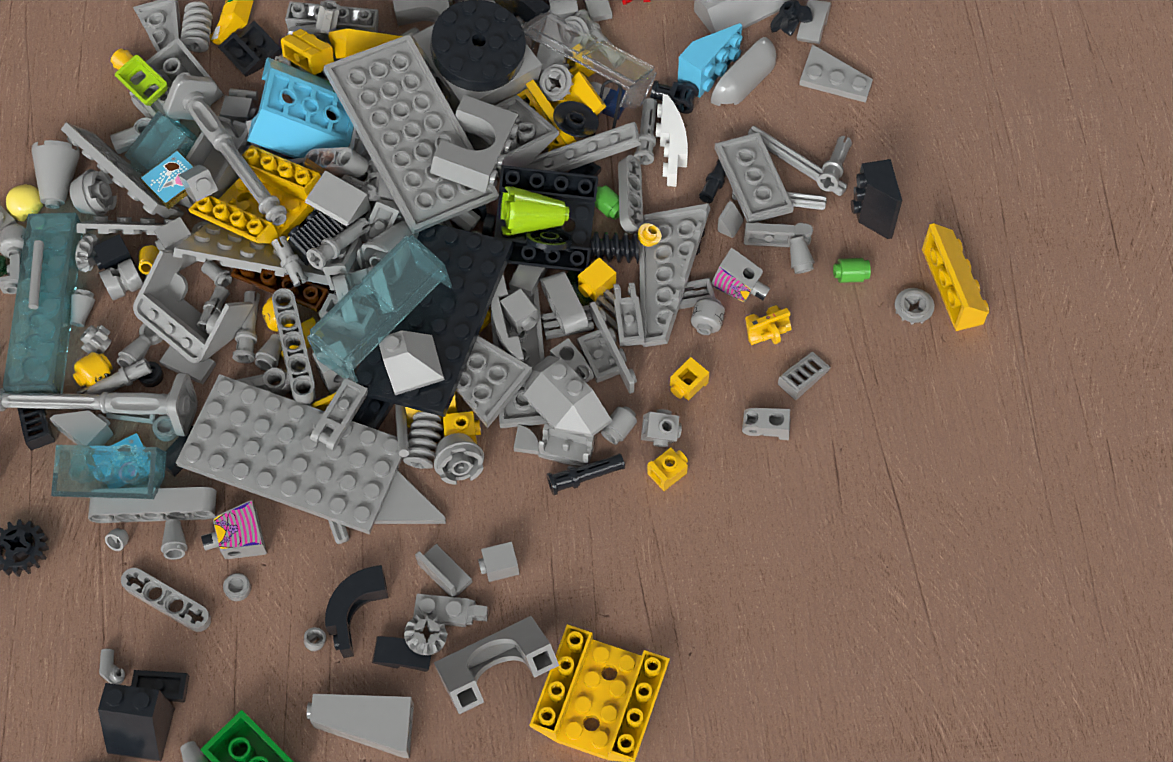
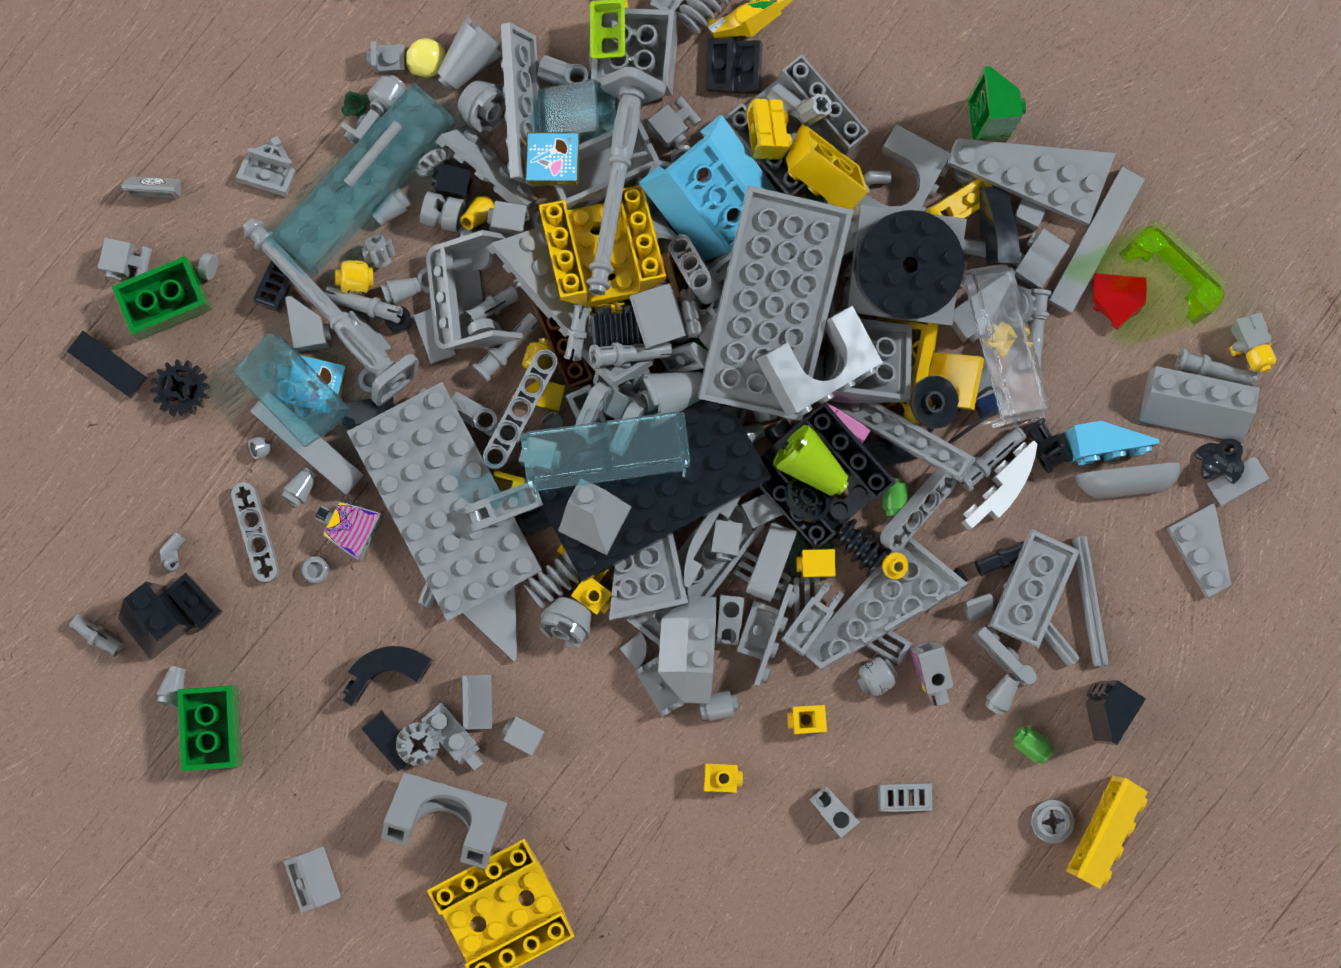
camera: 35 degrees right, 20 degrees up
(198, 182) = (564, 189): light grey brick -> none
(269, 354) = (503, 388): light grey cone -> none
(311, 635) = (335, 663): light grey hinge -> none
(369, 720) = (319, 770): light grey slope -> none
(402, 434) = (541, 562): light grey bar -> none
(548, 87) = (946, 340): light grey gear -> none
(574, 476) = (686, 733): black pin -> none
(661, 428) = (745, 741): light grey brick -> none
(768, 327) = (915, 734): yellow hips -> none
(833, 168) = (1107, 642): light grey pin -> none

